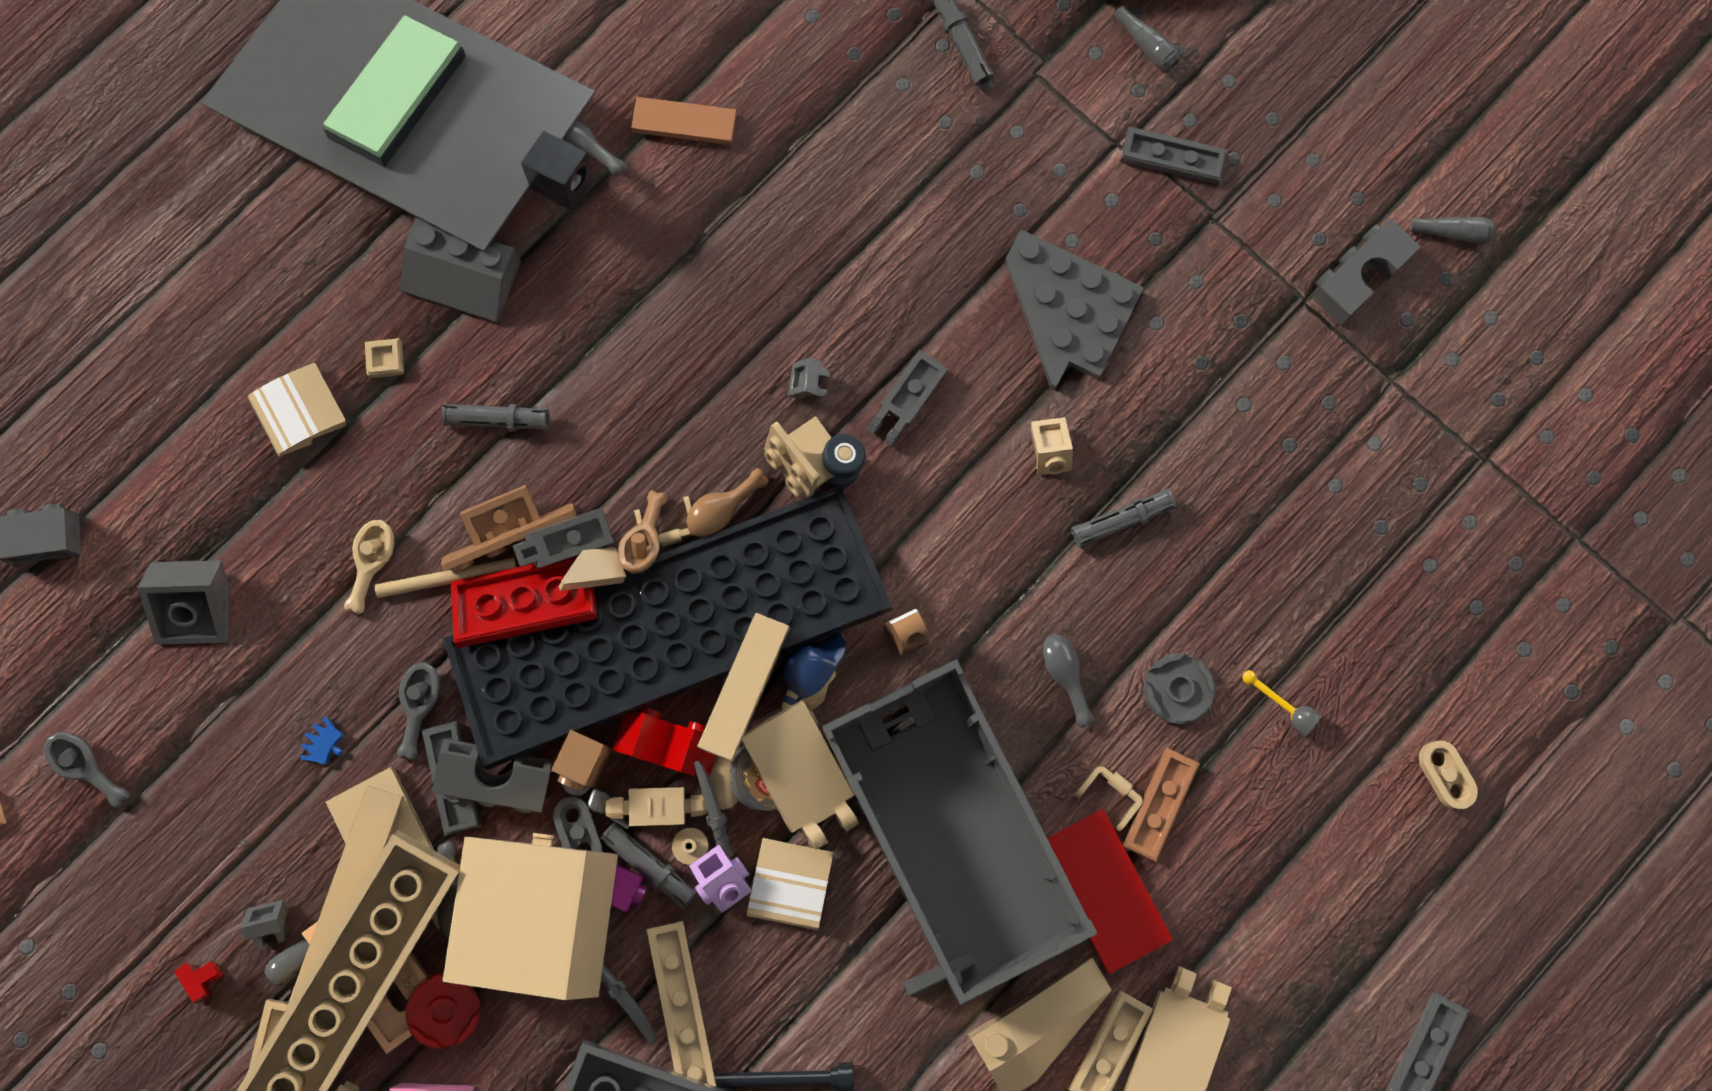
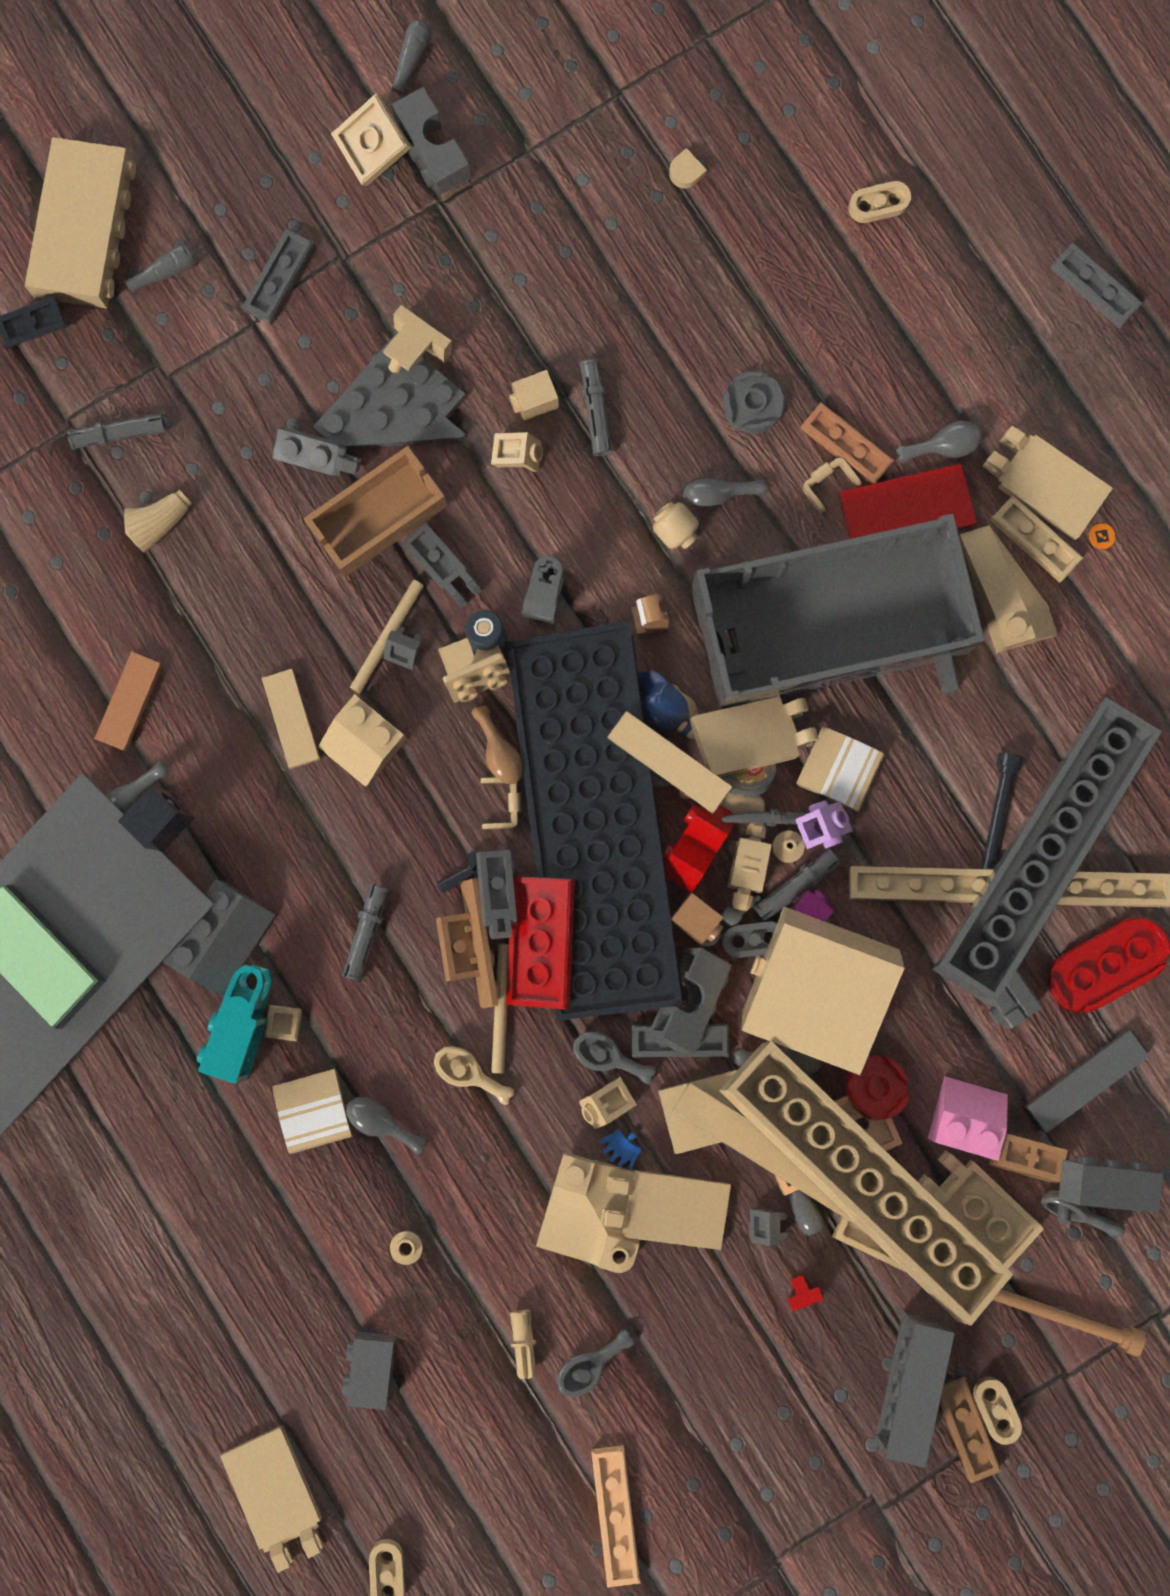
camera: 75 degrees left, 5 degrees up
(93, 687) = (523, 1343): none -> tan axle
(182, 543) = (406, 1237): none -> tan plate
(186, 601) = (466, 1244): dark grey slope -> none
(247, 732) = (575, 1214): none -> tan slope
(263, 809) = (670, 1209): none -> tan tile
(299, 474) = (375, 1120): none -> dark grey piece
(363, 309) = (237, 1027): none -> teal brick
(365, 715) = (607, 1103): none -> tan bracket
(578, 499) = (462, 875): none -> black bar
(594, 569) = (530, 871): tan tile -> none
(617, 990) = (894, 936): dark grey piece -> none
(642, 544) = (516, 826): medium nougat piece -> none
(699, 362) = (361, 741): none -> tan slope
(705, 285) = (291, 718): none -> tan tile
(832, 365) = (393, 624): none -> tan bar
(874, 94) = (150, 523): none -> tan piece
(898, 509) = (543, 598): none -> dark grey piece
(944, 313) = (376, 511): none -> medium nougat piece
(992, 237) = (313, 453): none -> hinge
(1015, 635) = (675, 525): none -> tan head
(1117, 448) = (534, 395): none -> tan brick
(1139, 306) = (413, 340): none -> tan piece
(1195, 922) = (952, 441): none -> dark grey piece
(1302, 718) = (805, 307): hinge -> none
(1347, 210) = (371, 140): none -> tan tile
(1419, 551) = (686, 170): none -> tan tile

